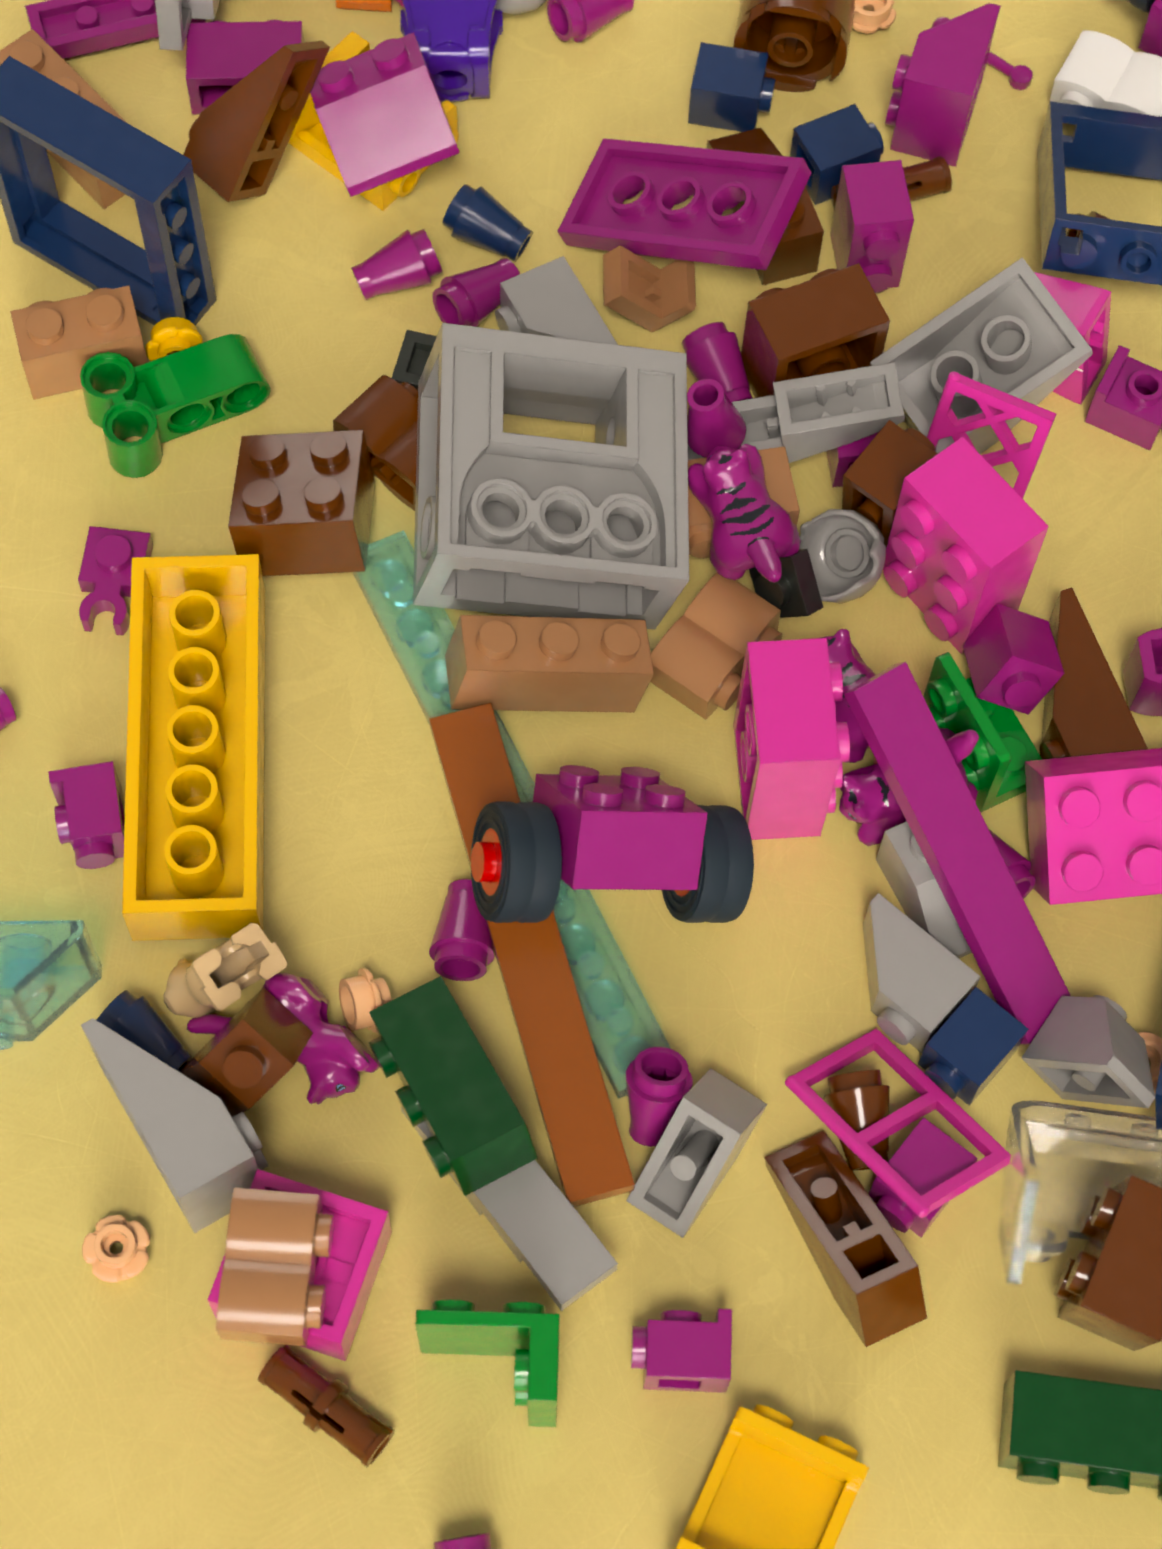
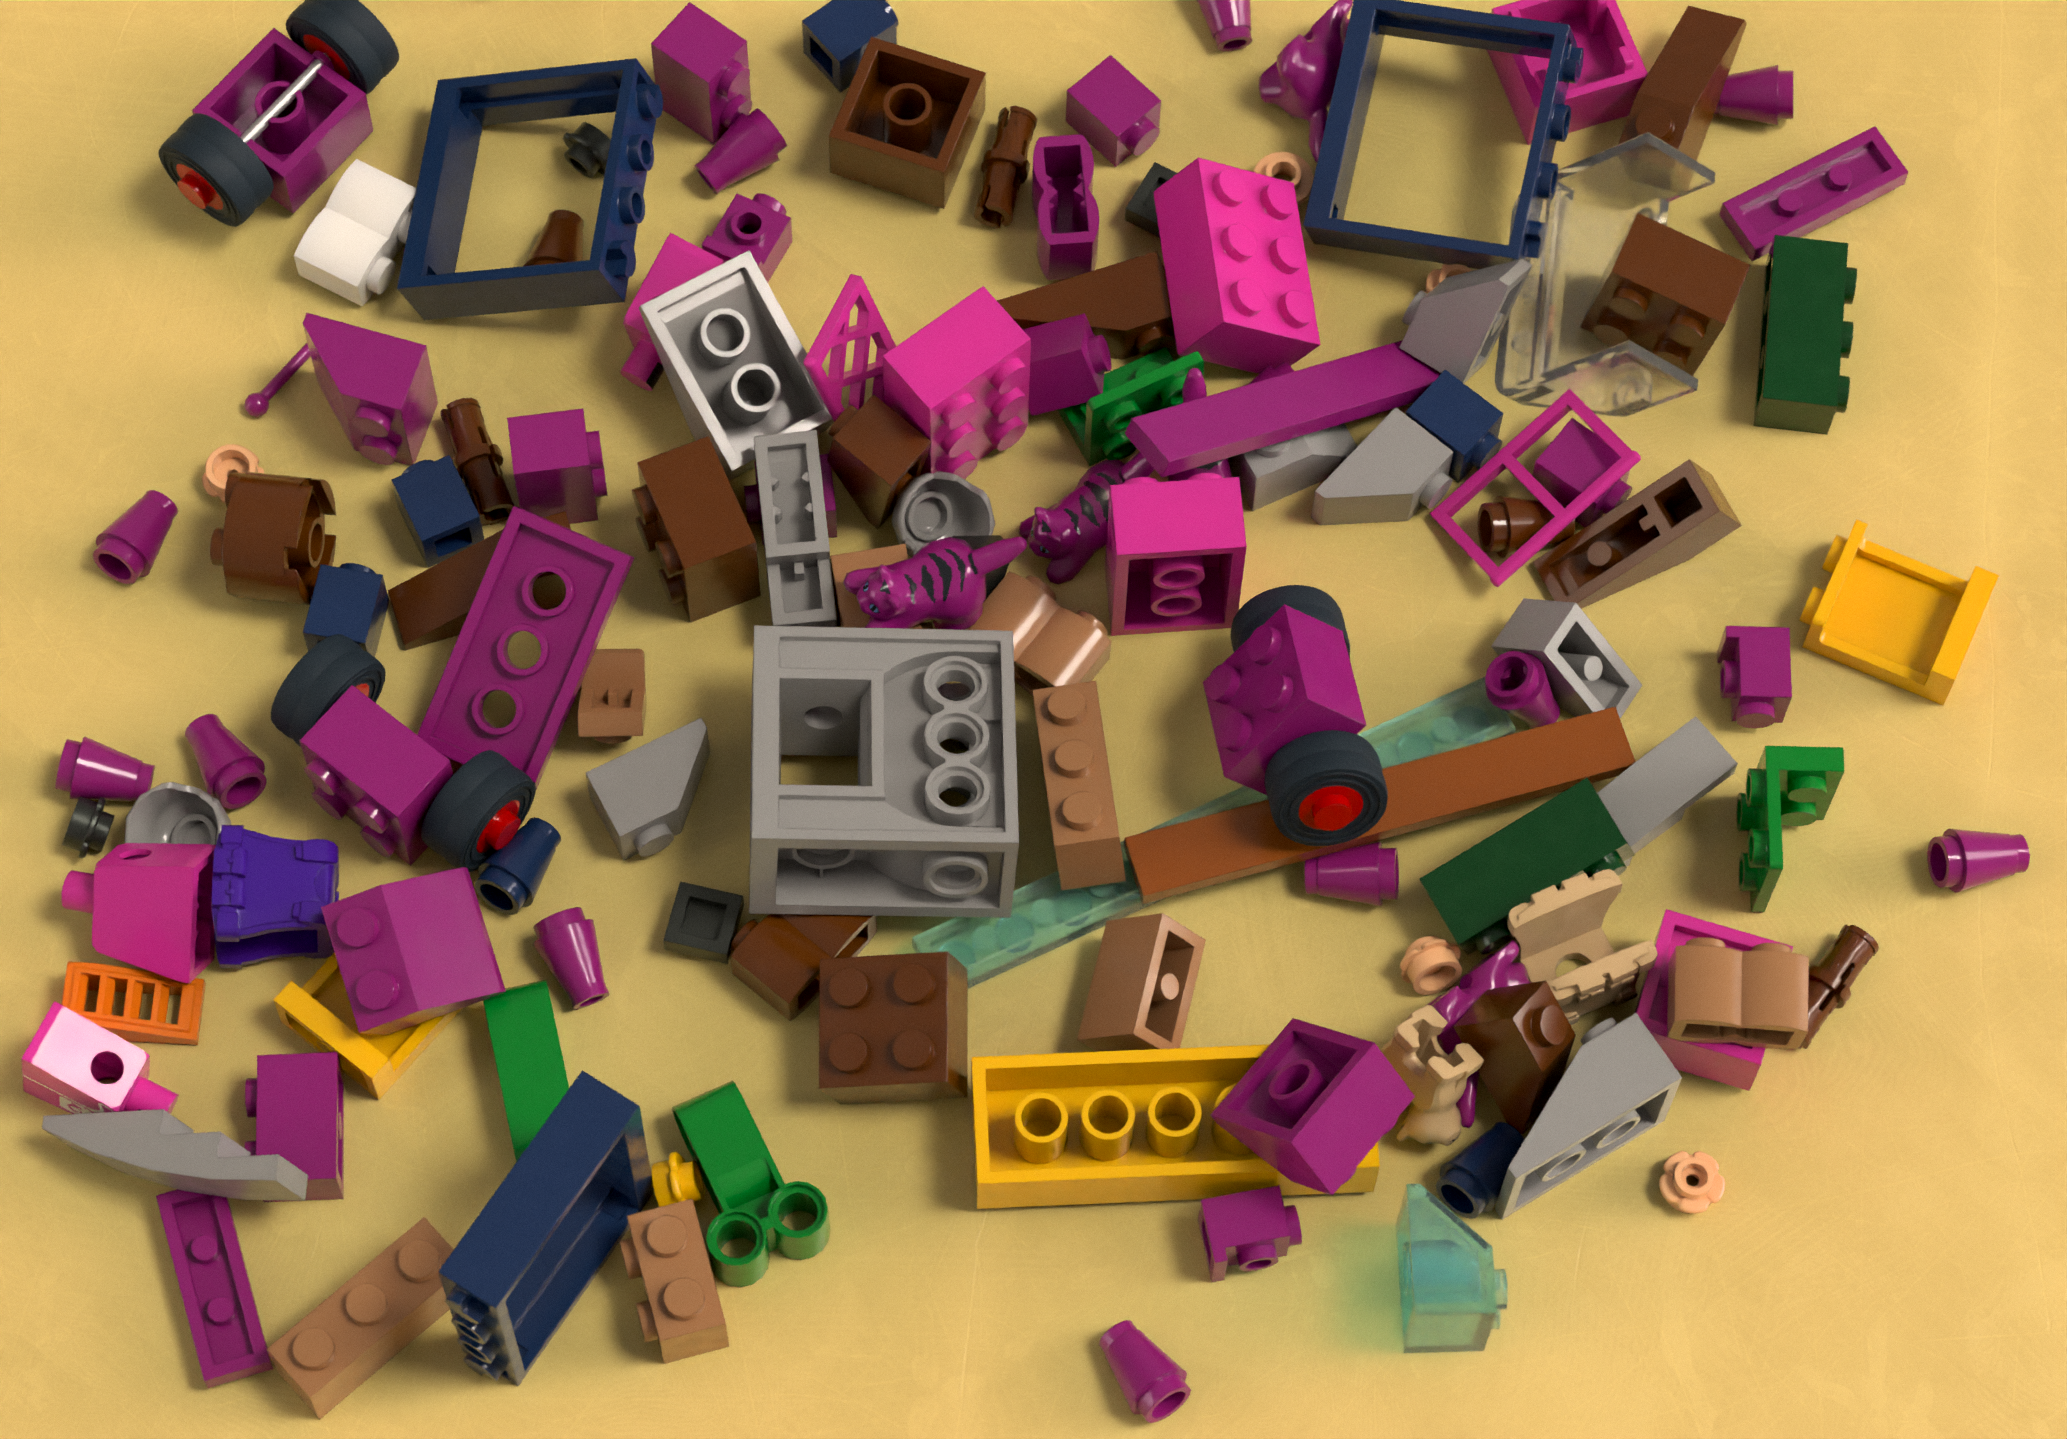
camera: 90 degrees left, 0 degrees up
(107, 573) = (946, 1238): magenta plate -> none
(173, 839) = (1315, 1104): none -> magenta slope
(247, 129) = (409, 1096): reddish brown slope -> none
(286, 235) = (526, 1058): none -> green beam
(336, 721) = (1141, 985): none -> medium nougat brick
(382, 1113) = (1567, 927): none -> tan piece
(472, 294) = (612, 877): magenta cone -> none
(571, 98) = (388, 775): none -> brick
(712, 418) = (810, 595): magenta cone -> none
(717, 356) = (705, 633): magenta cone -> none

